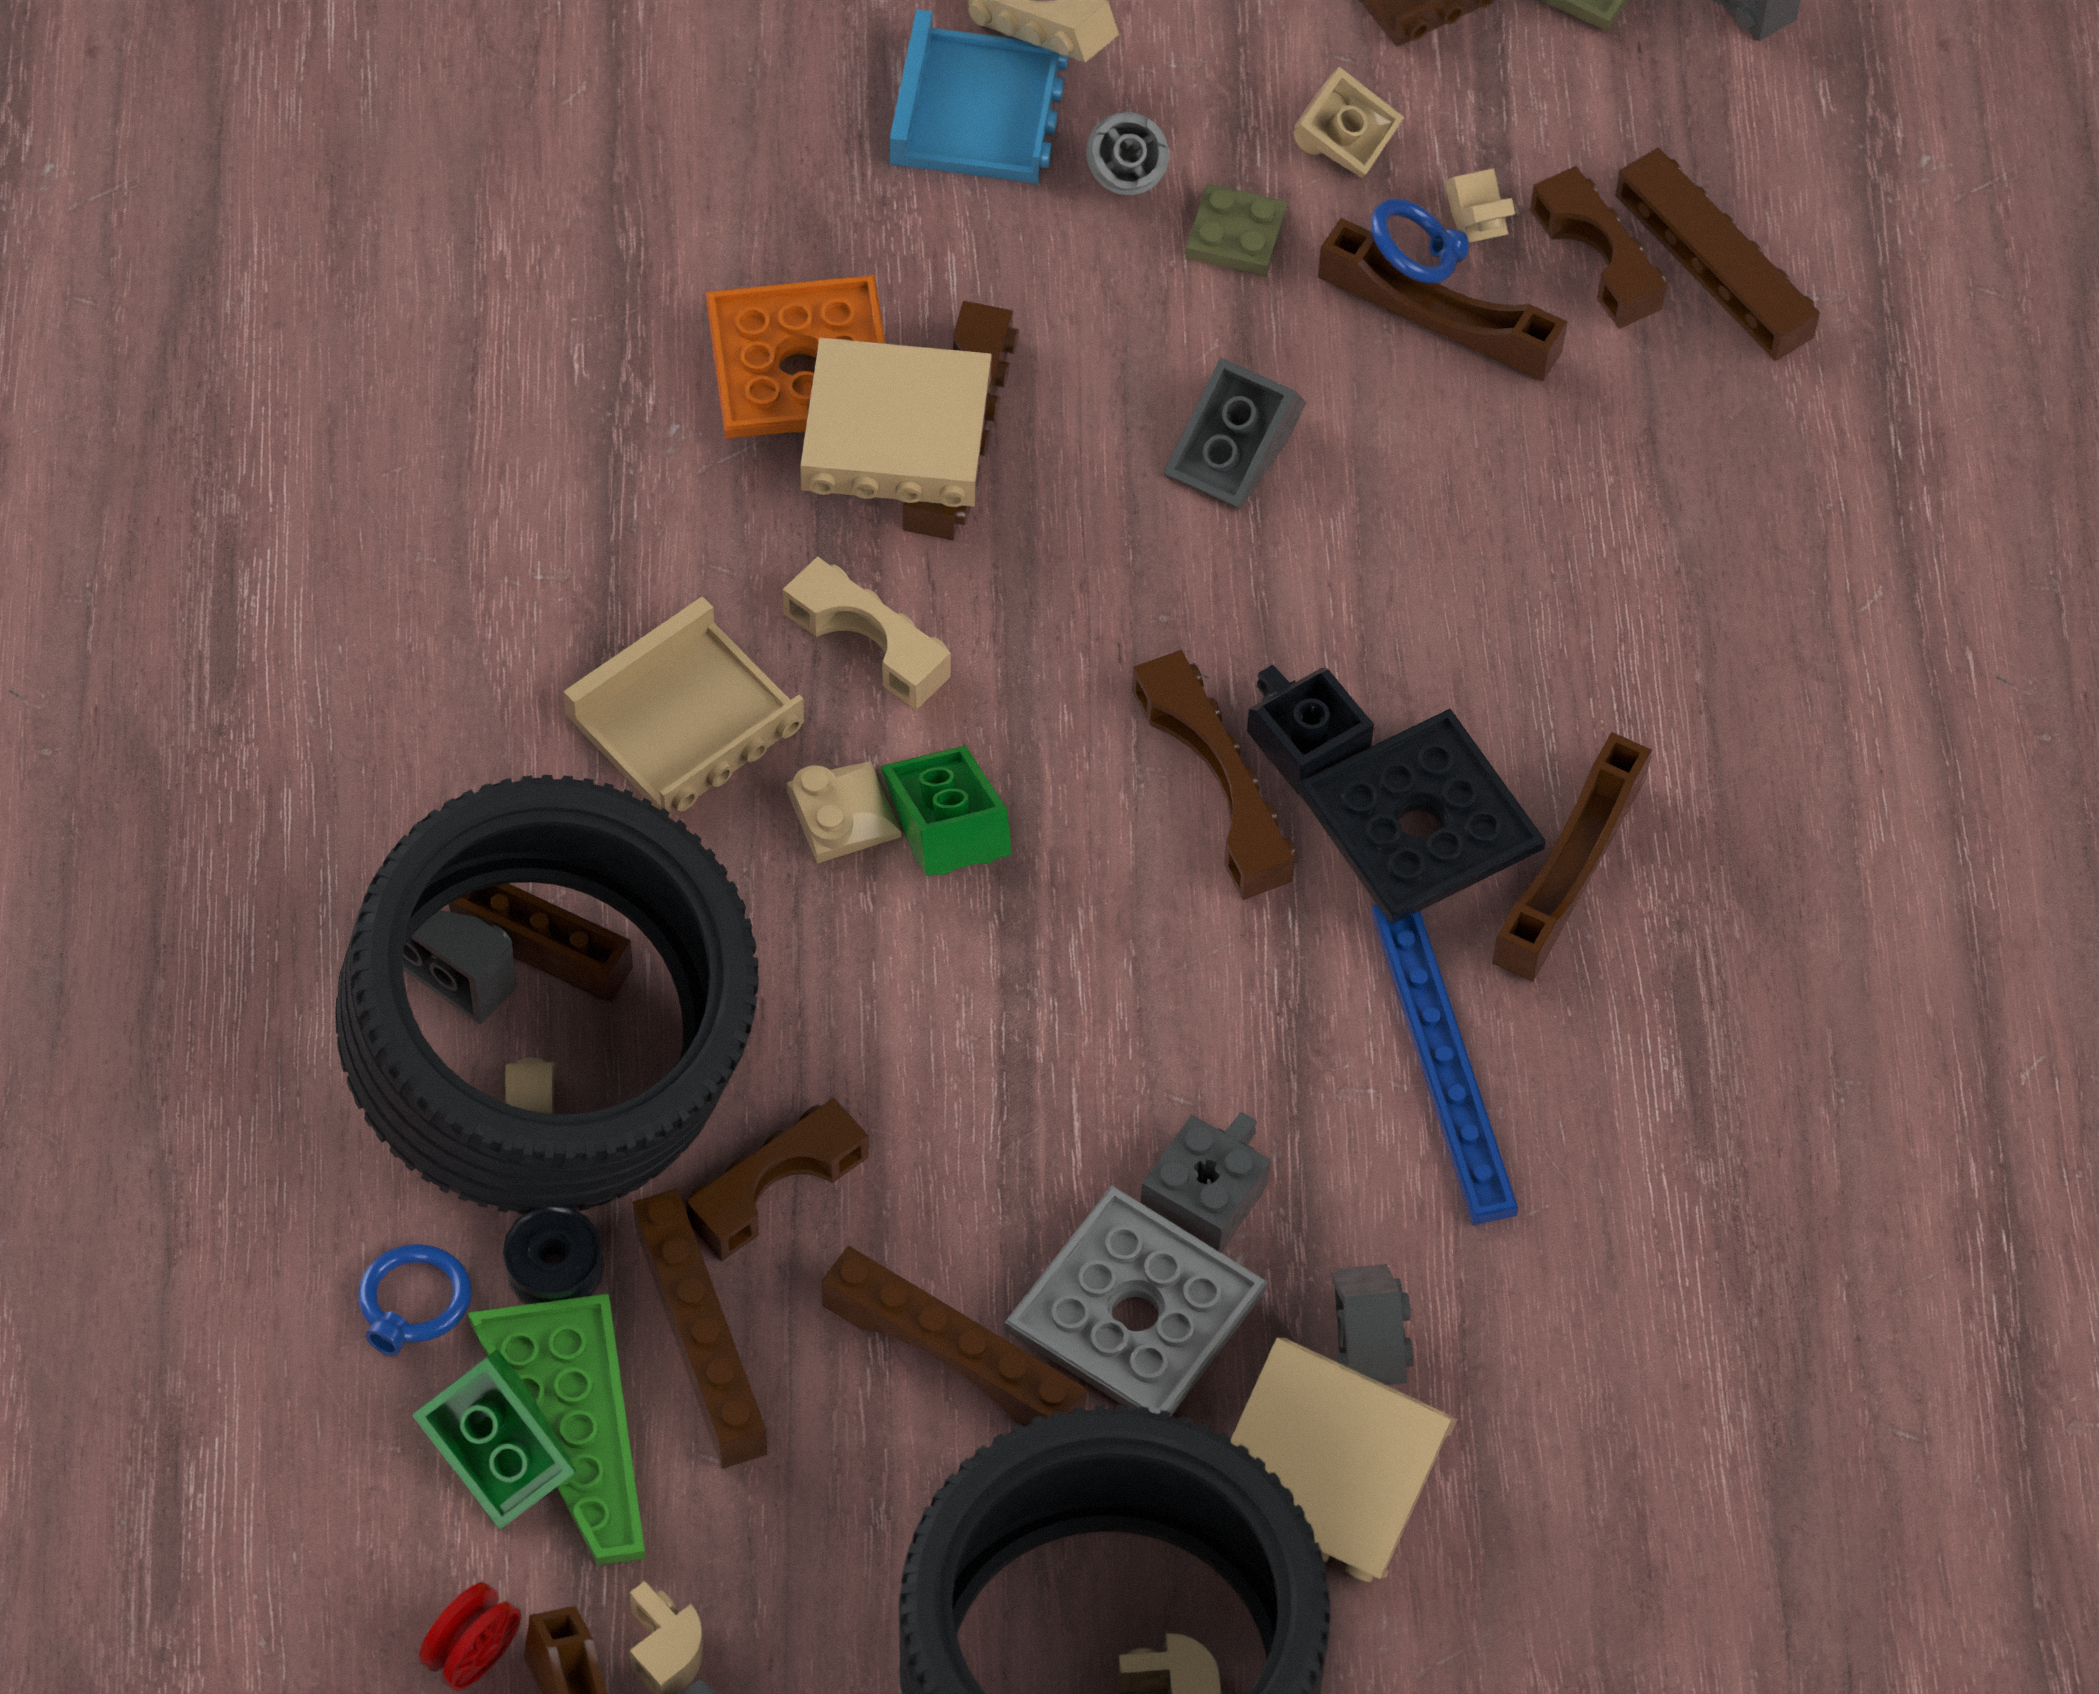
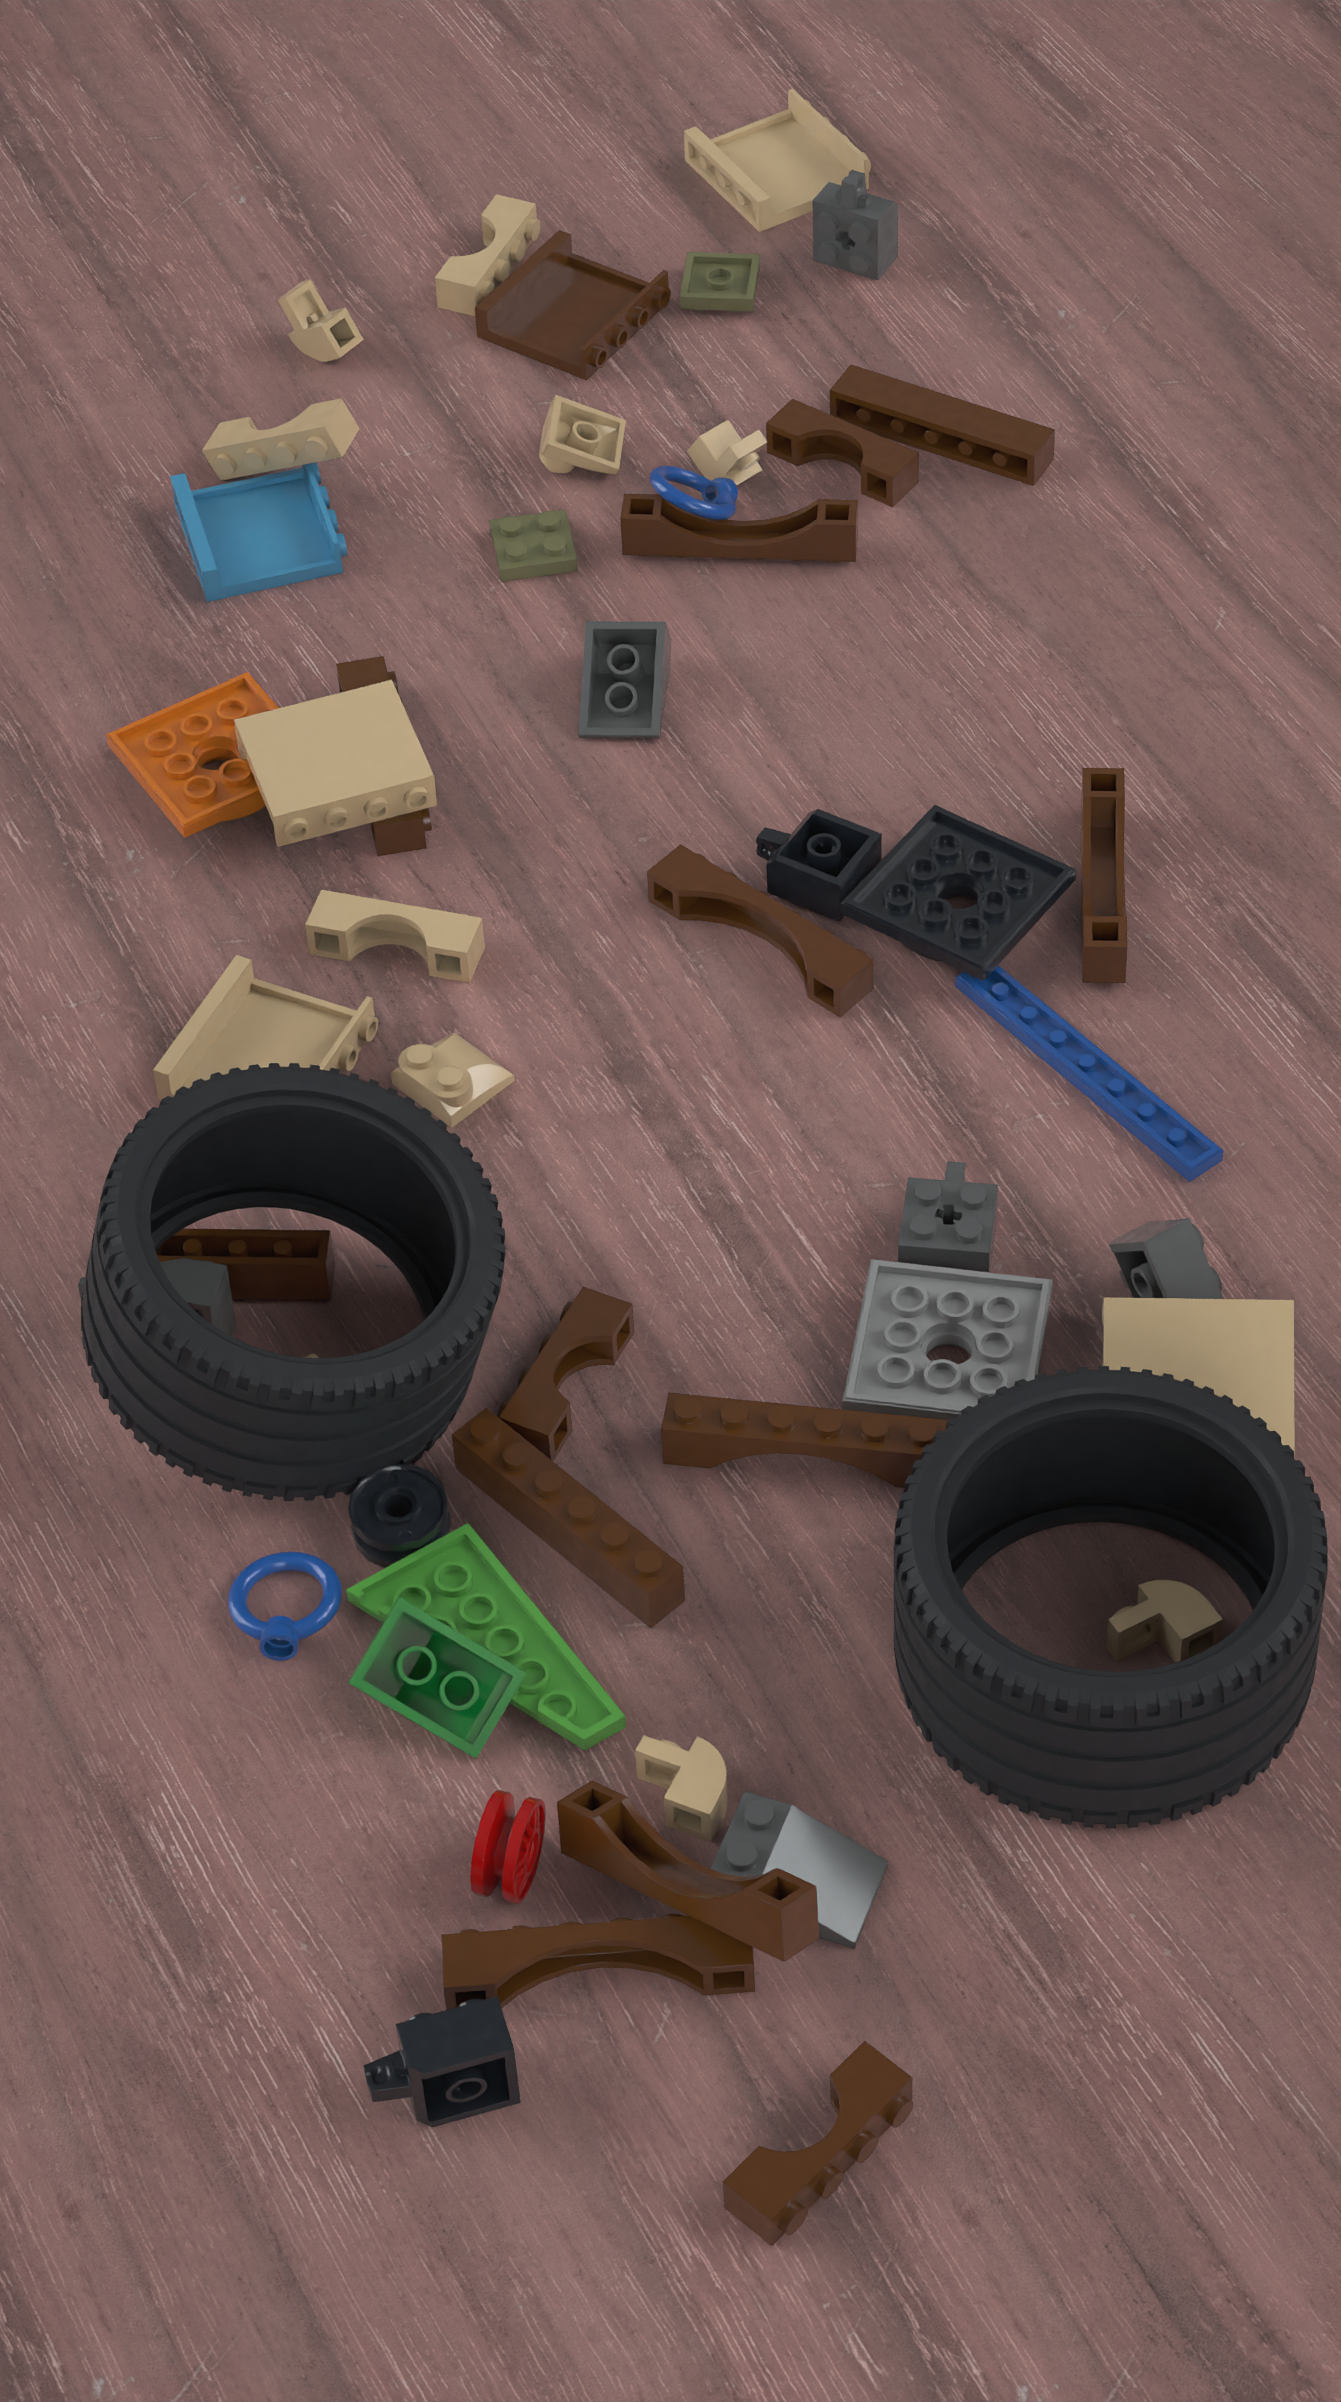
camera: 20 degrees left, 10 degrees down
(948, 810) = (549, 1040): green slope -> none
(1127, 153) = (413, 515): light grey cone -> none

